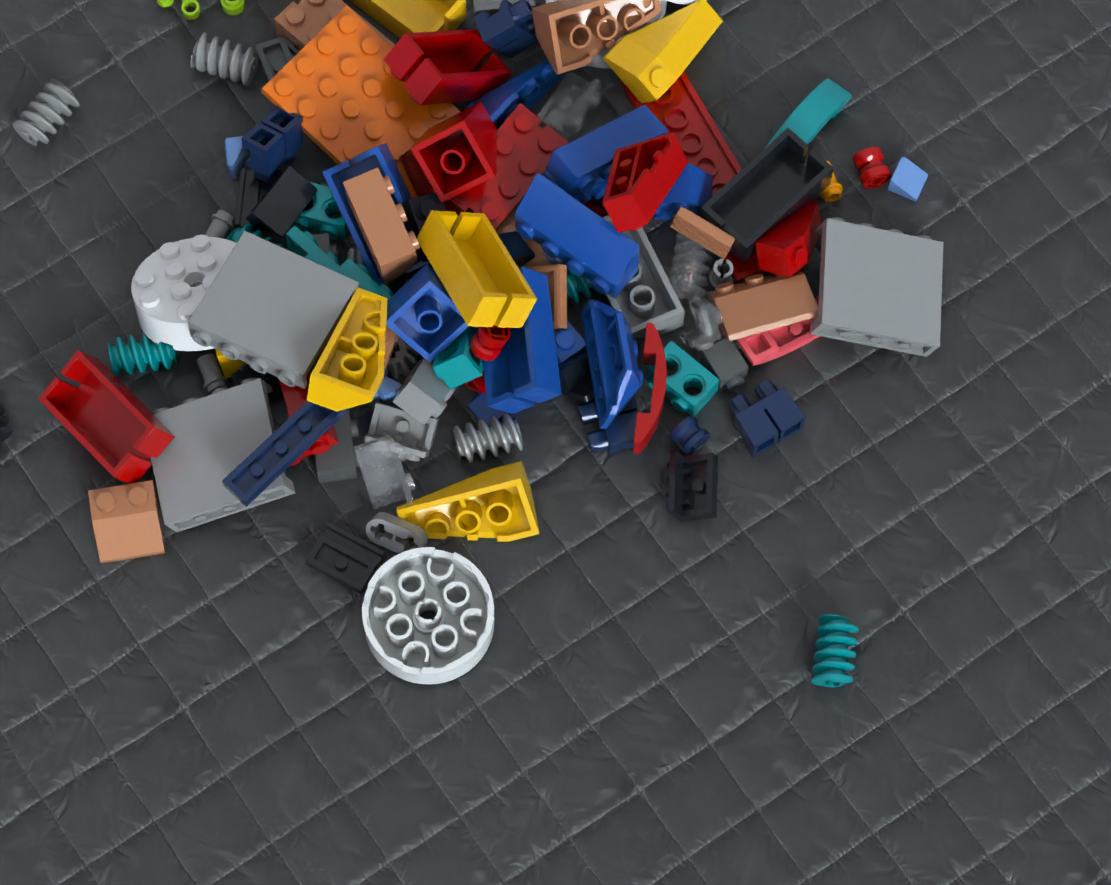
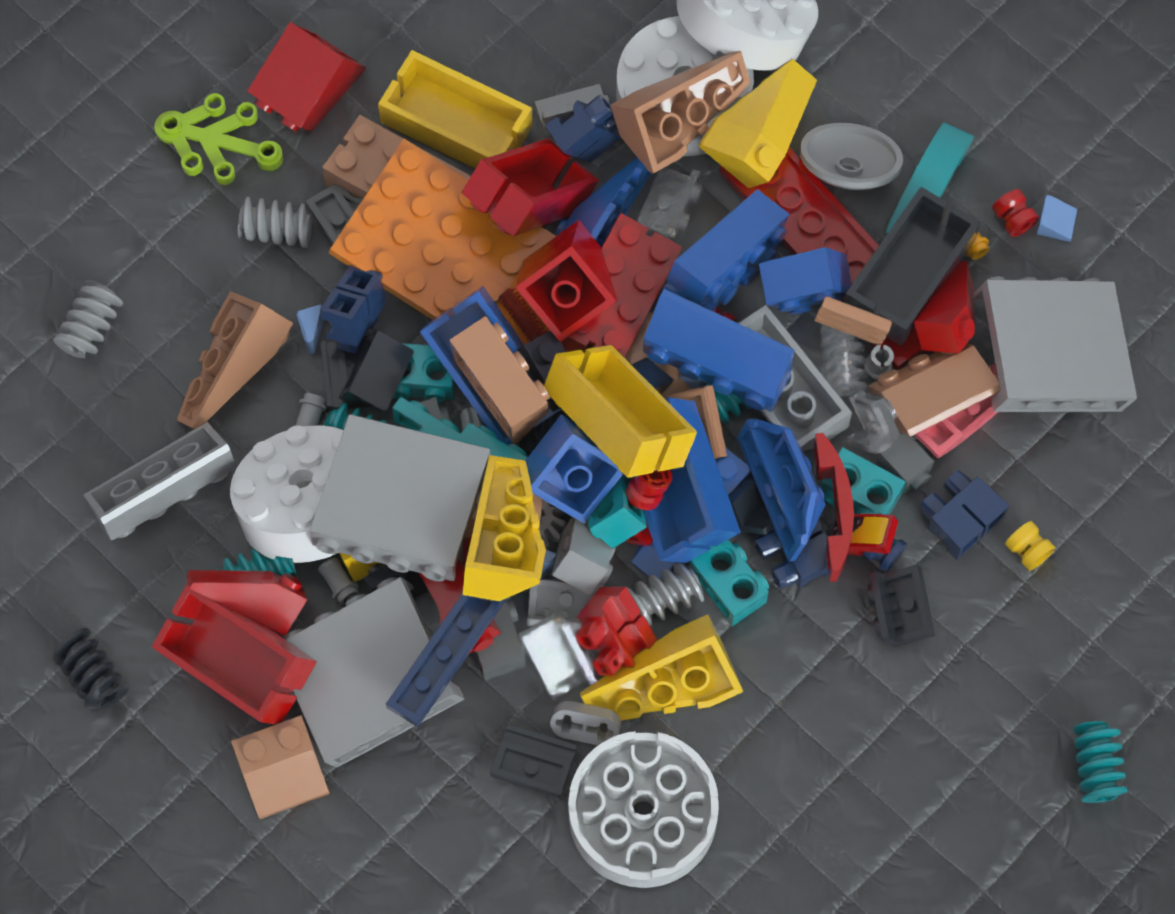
camera: 10 degrees left, 0 degrees up
(77, 261) = (160, 481): none -> light grey slope
(136, 371) = (254, 594): none -> red slope
(176, 155) = (243, 342): none -> nougat wedge
(437, 457) = (614, 629): none -> red hips
(543, 438) = (721, 584): none -> teal brick
(641, 180) = (780, 276): red wedge -> none
(678, 418) = (871, 533): none -> slope
(737, 91) = (851, 156): none -> light grey dish
(817, 456) = (1030, 545): none -> yellow wheel

